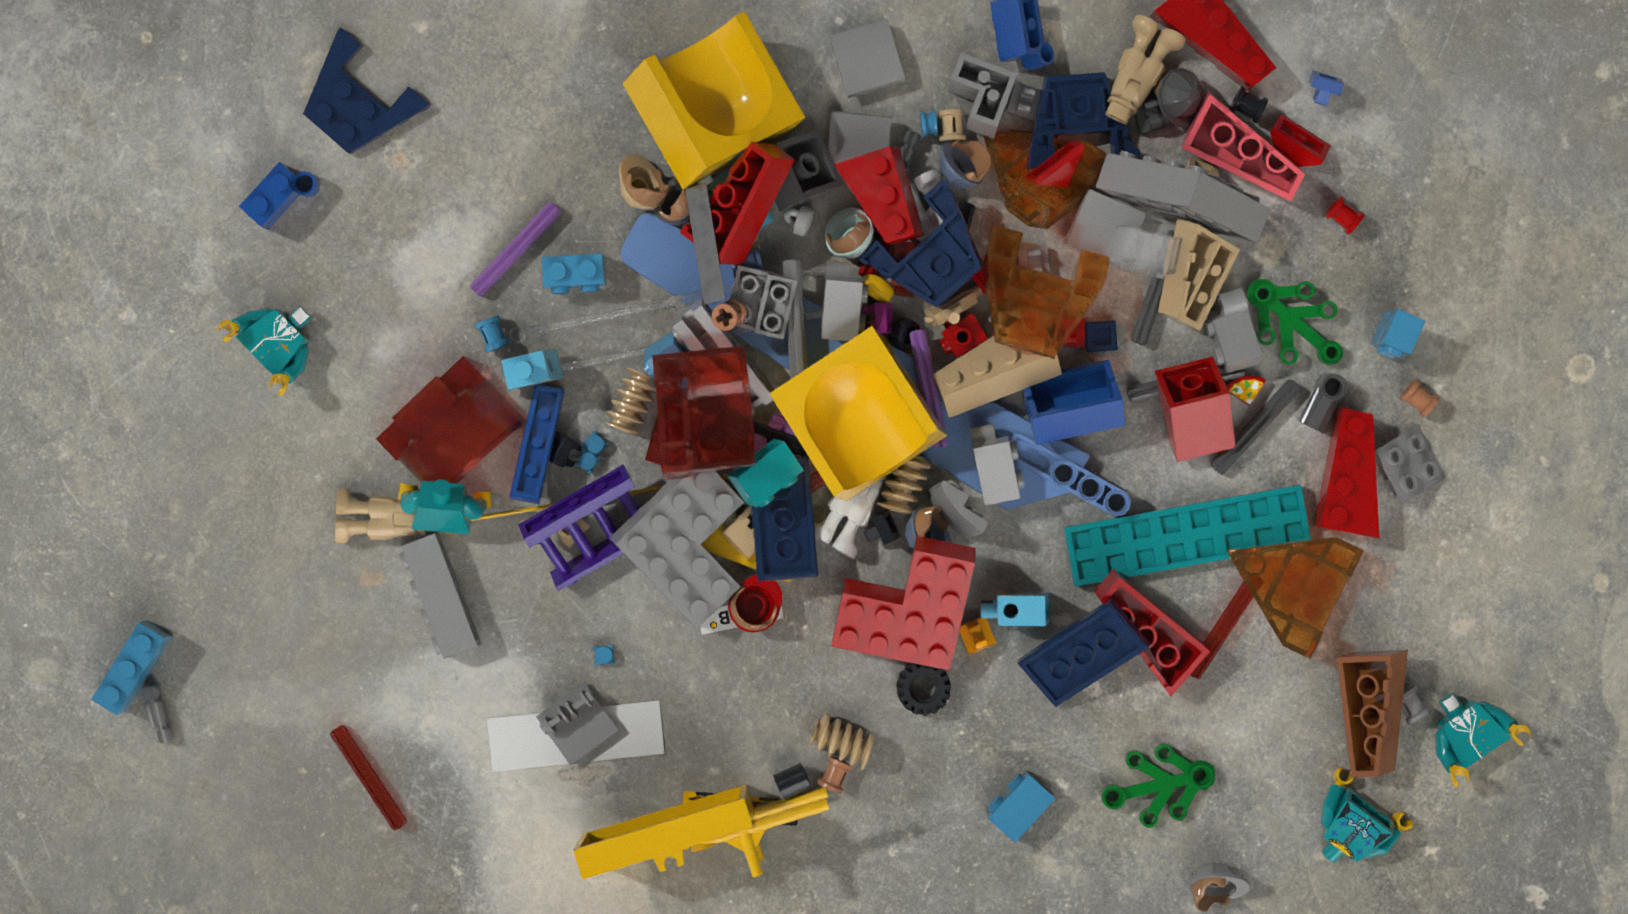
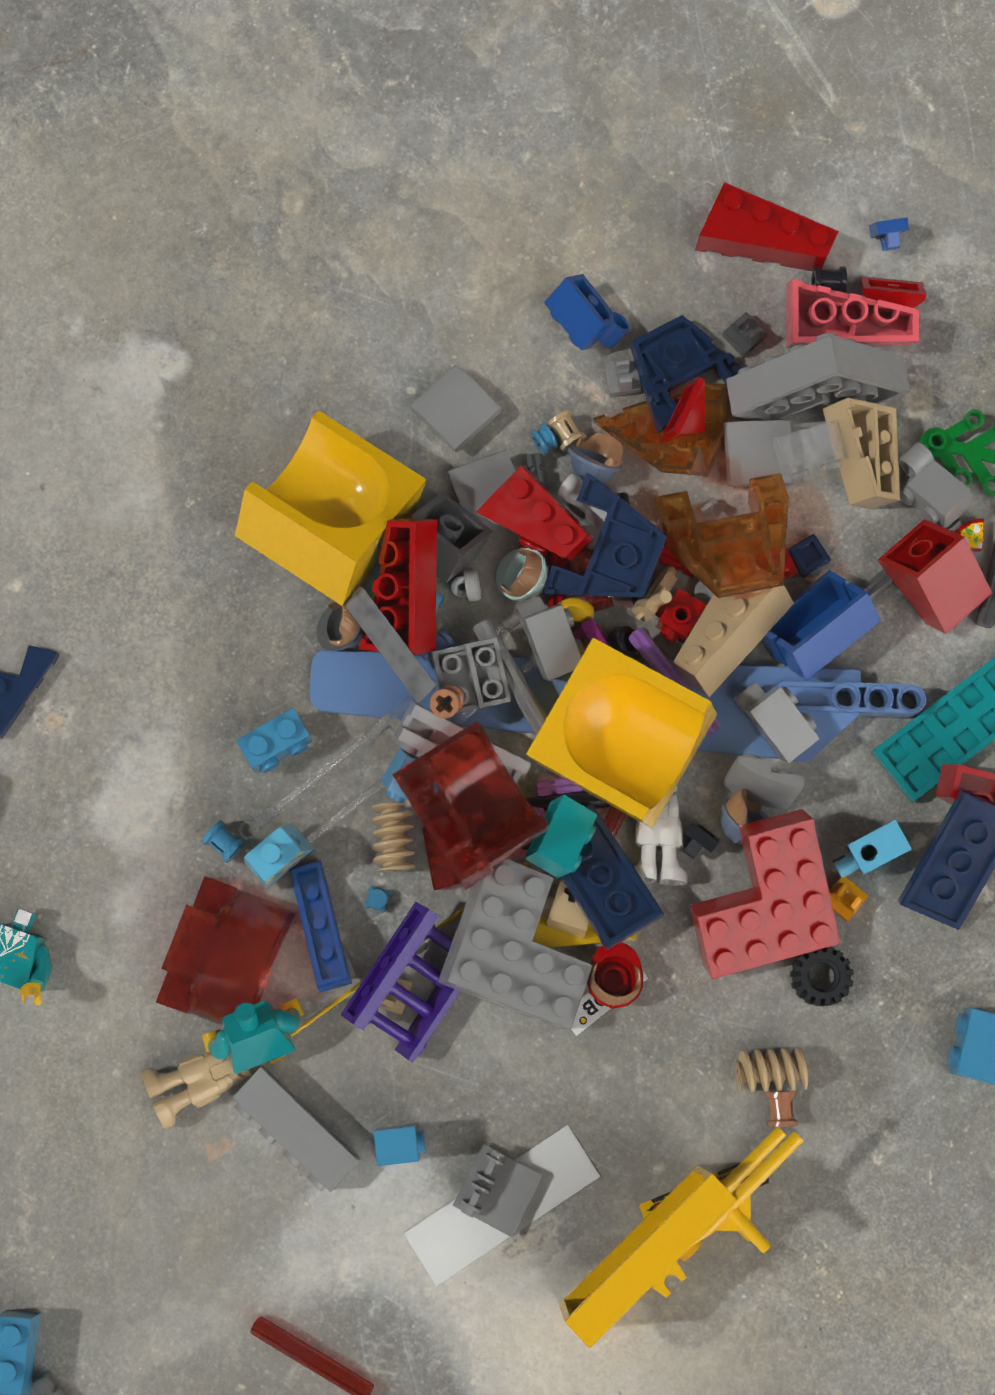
camera: 30 degrees left, 10 degrees down
(515, 249) = (207, 749): medium lavender axle -> none
(515, 649) = (399, 1144): none -> dark azure brick
(561, 450) = (347, 919): black tile -> none
(587, 461) = (377, 919): dark azure piece -> none
(604, 654) = (489, 1106): dark azure piece -> none
(641, 183) = (299, 626): tan piece -> none
(792, 781) = (742, 1137): black beam -> none
(904, 485) = (698, 787): tan piece -> none
(988, 87) = (583, 378): light grey brick -> none
(1138, 73) = (713, 299): tan piece -> none
(1148, 310) = (839, 508): dark grey axle -> none
(1179, 96) = (763, 302): dark grey piece -> none
(1344, 215) = (971, 335): red bush -> none

